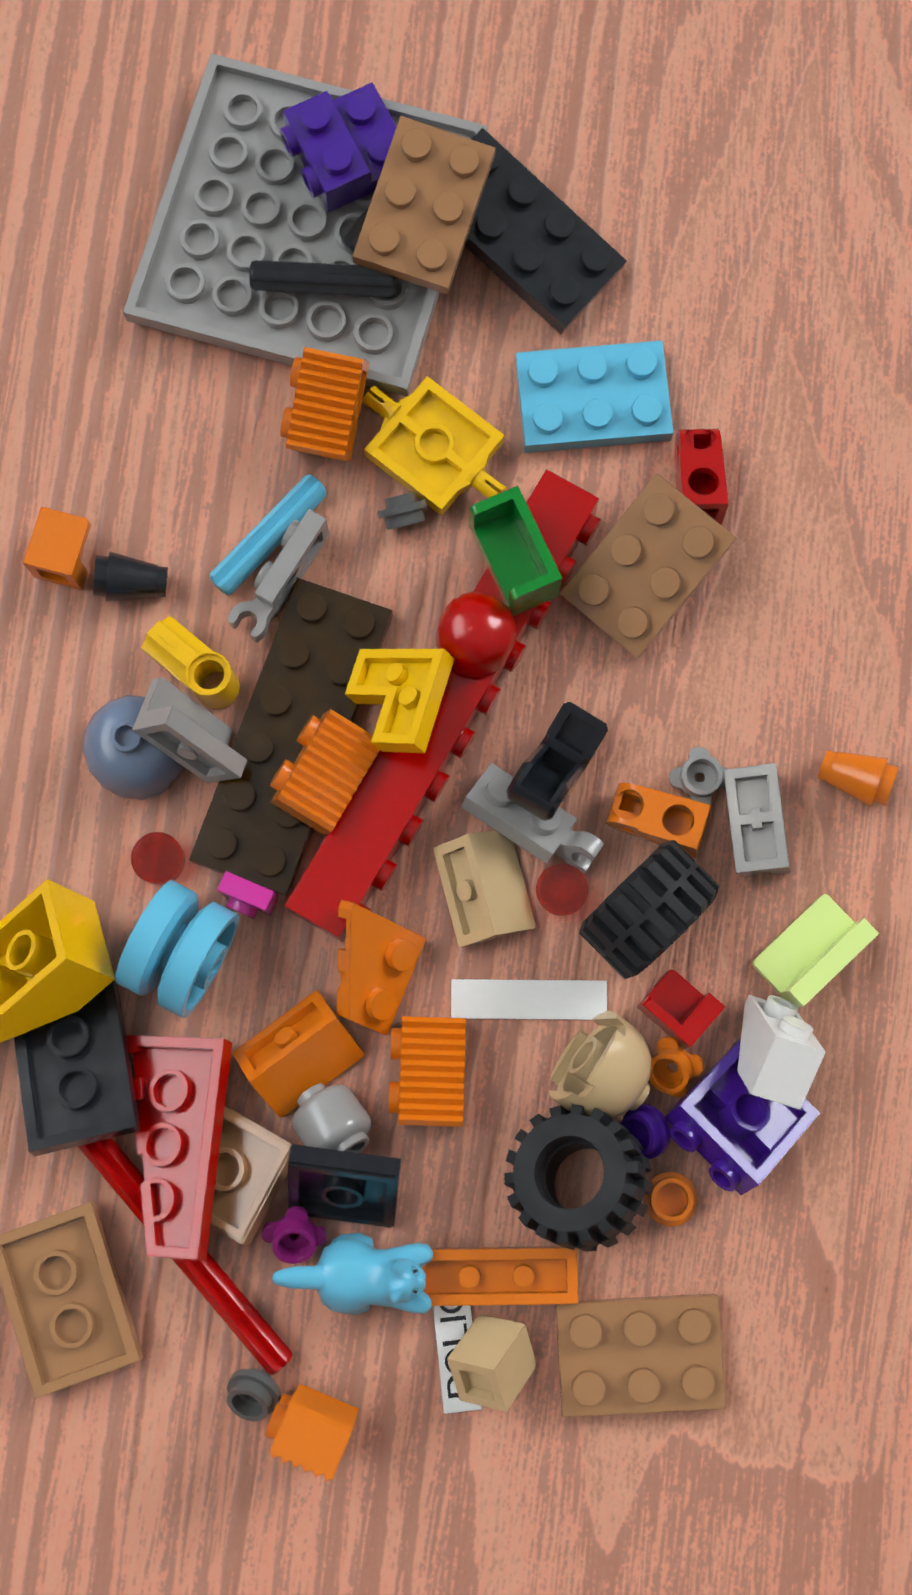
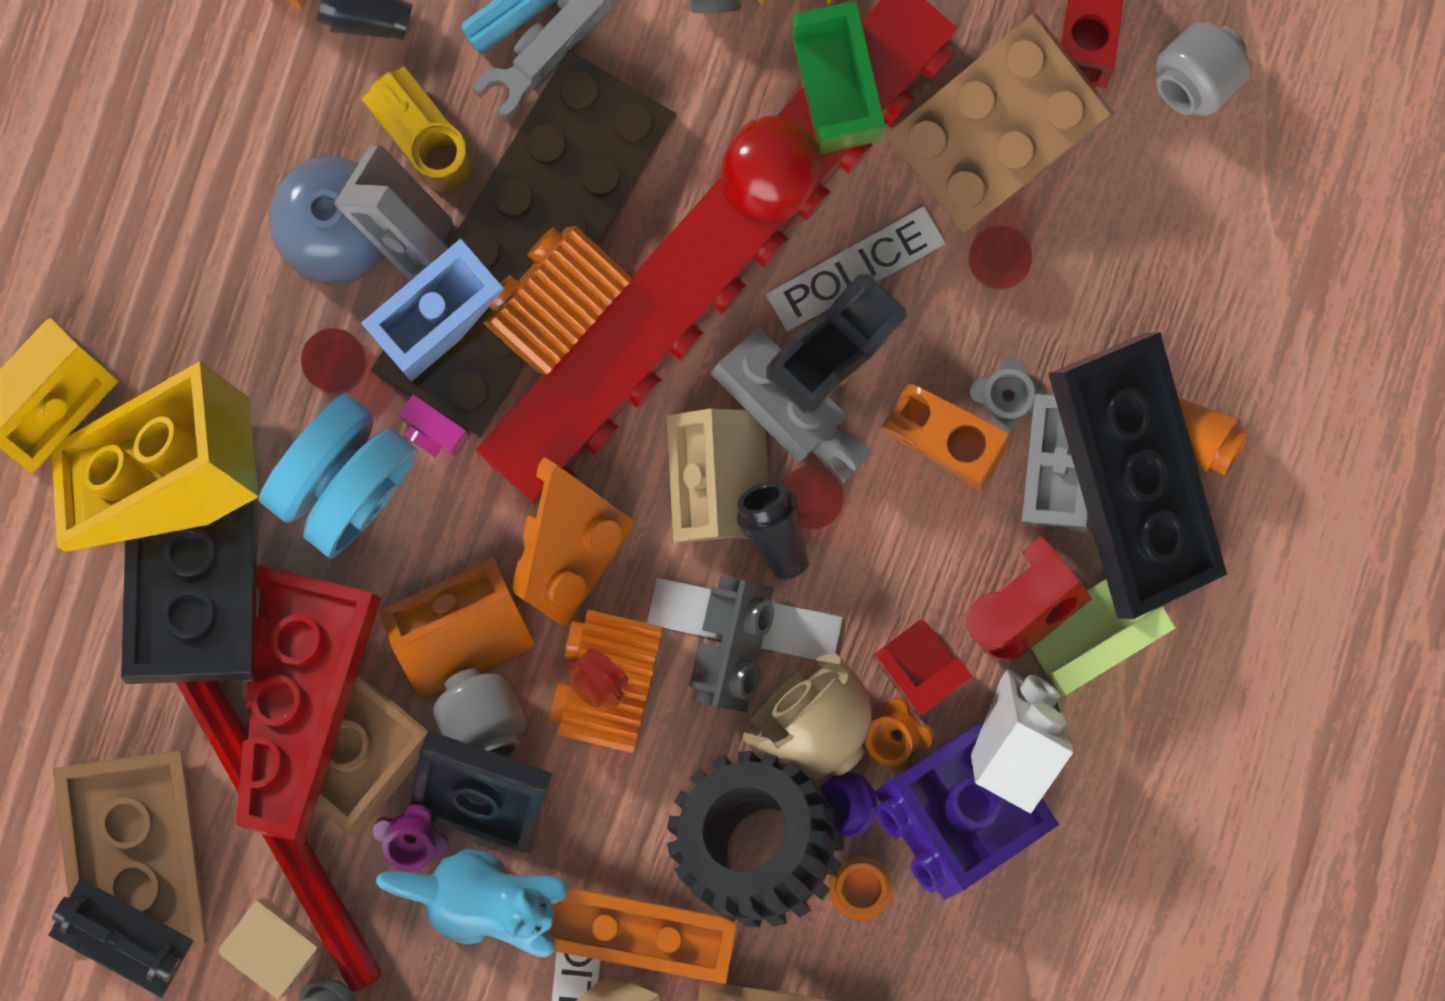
camera: 10 degrees right, 5 degrees up
(67, 1372) = (120, 937): none -> black hinge
(195, 1353) = (270, 948): none -> tan panel
(229, 798) = (433, 310): none -> light blue slope
(408, 687) = (676, 223): yellow plate -> none
(422, 1072) = (597, 679): none -> clear red plate
(527, 1044) = (730, 673): none -> dark grey hinge
(538, 919) = (774, 527): none -> black cone
(575, 686) = (875, 255): none -> white sticker
(650, 909) = (906, 543): black tyre -> none
(669, 671) = (1000, 257): none -> clear red plate
(756, 941) = (1027, 608): none -> red leg
(794, 494) = (1202, 69): none -> light grey head
(821, 817) = (1138, 474): none -> black plate

